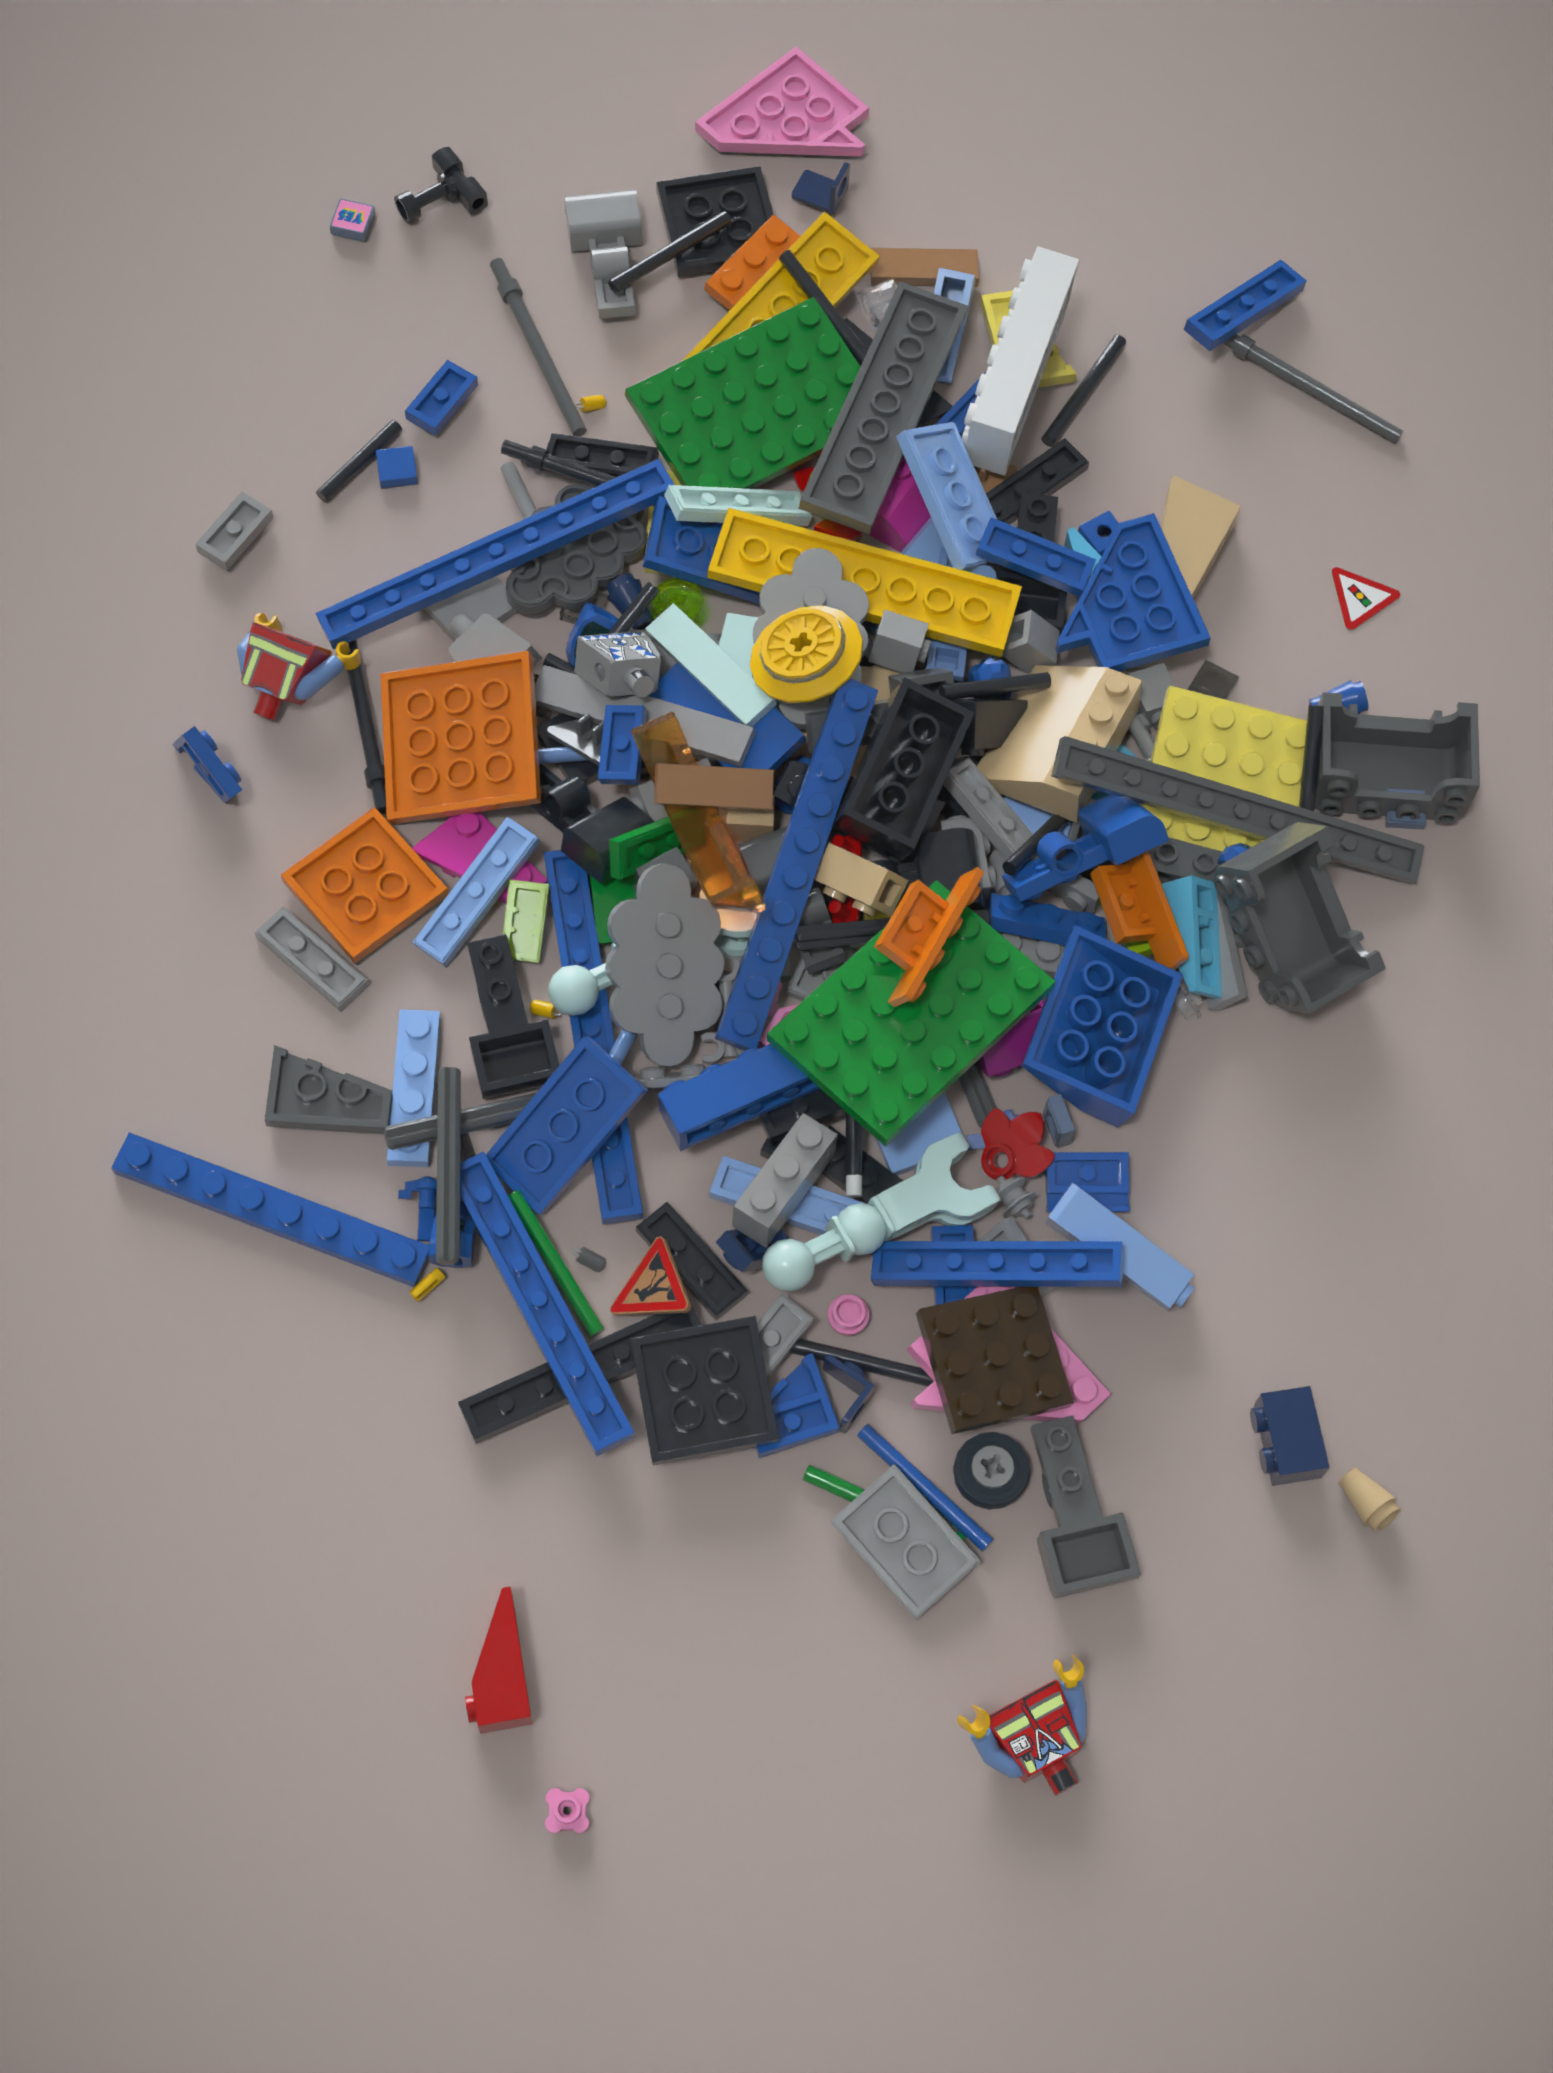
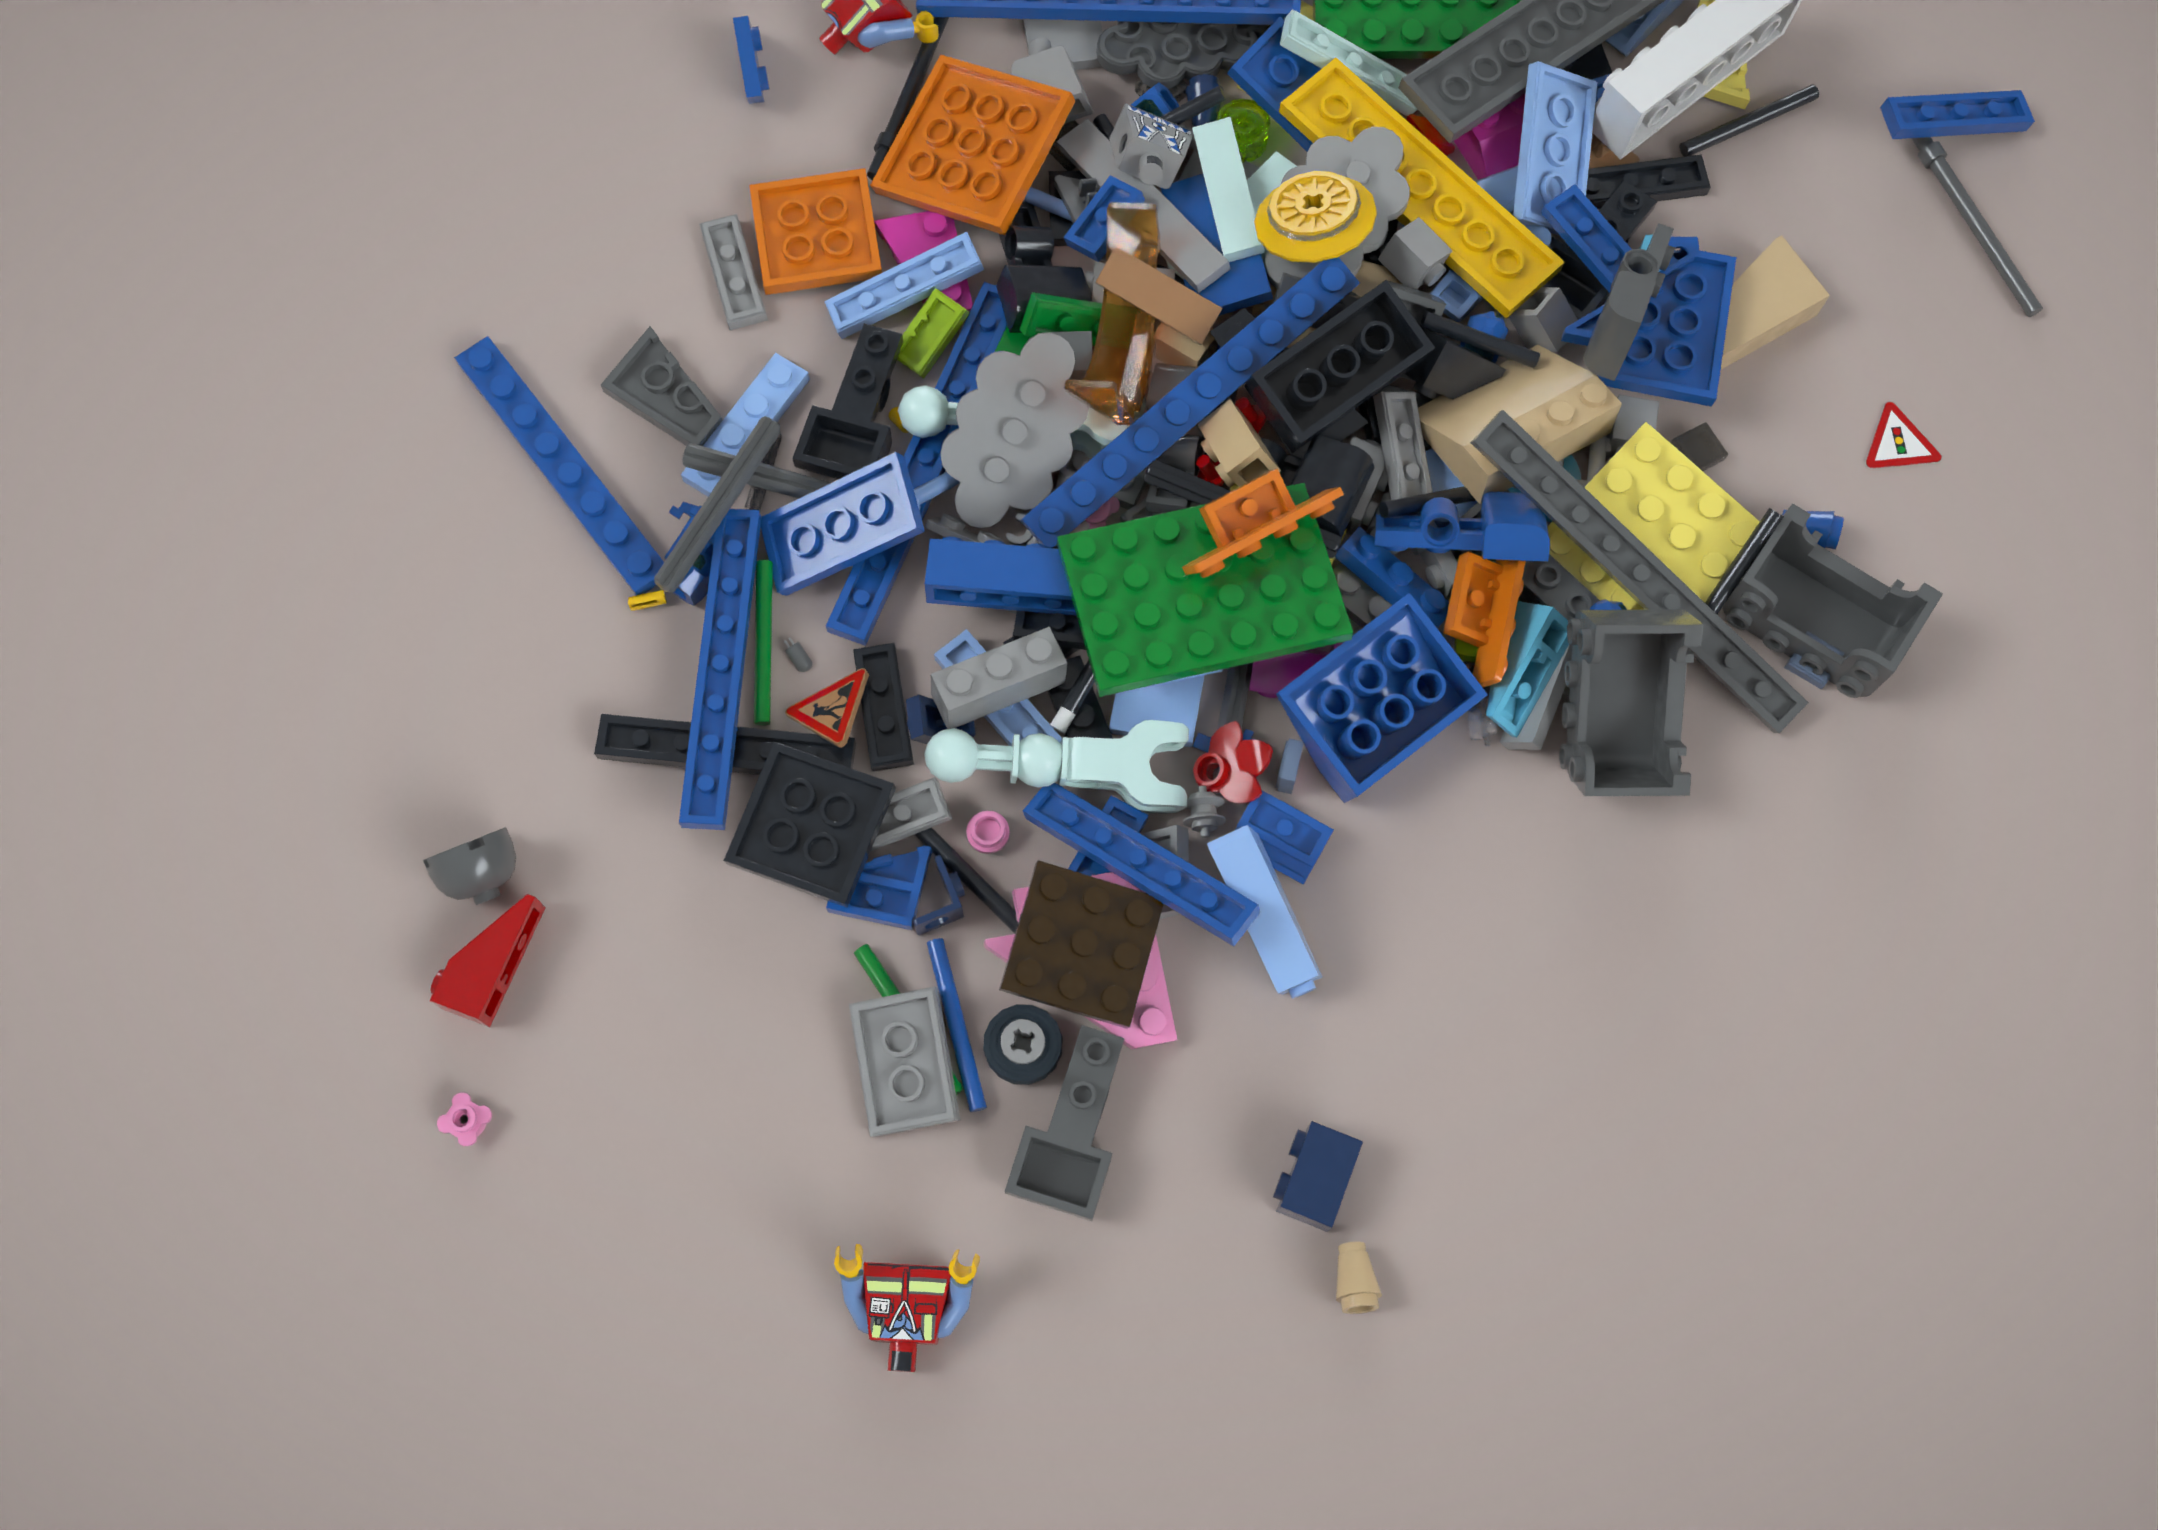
camera: 35 degrees right, 5 degrees up
(436, 1593) = (474, 867): none -> dark grey cylinder
(1106, 601) = (1627, 302): none -> dark grey plate

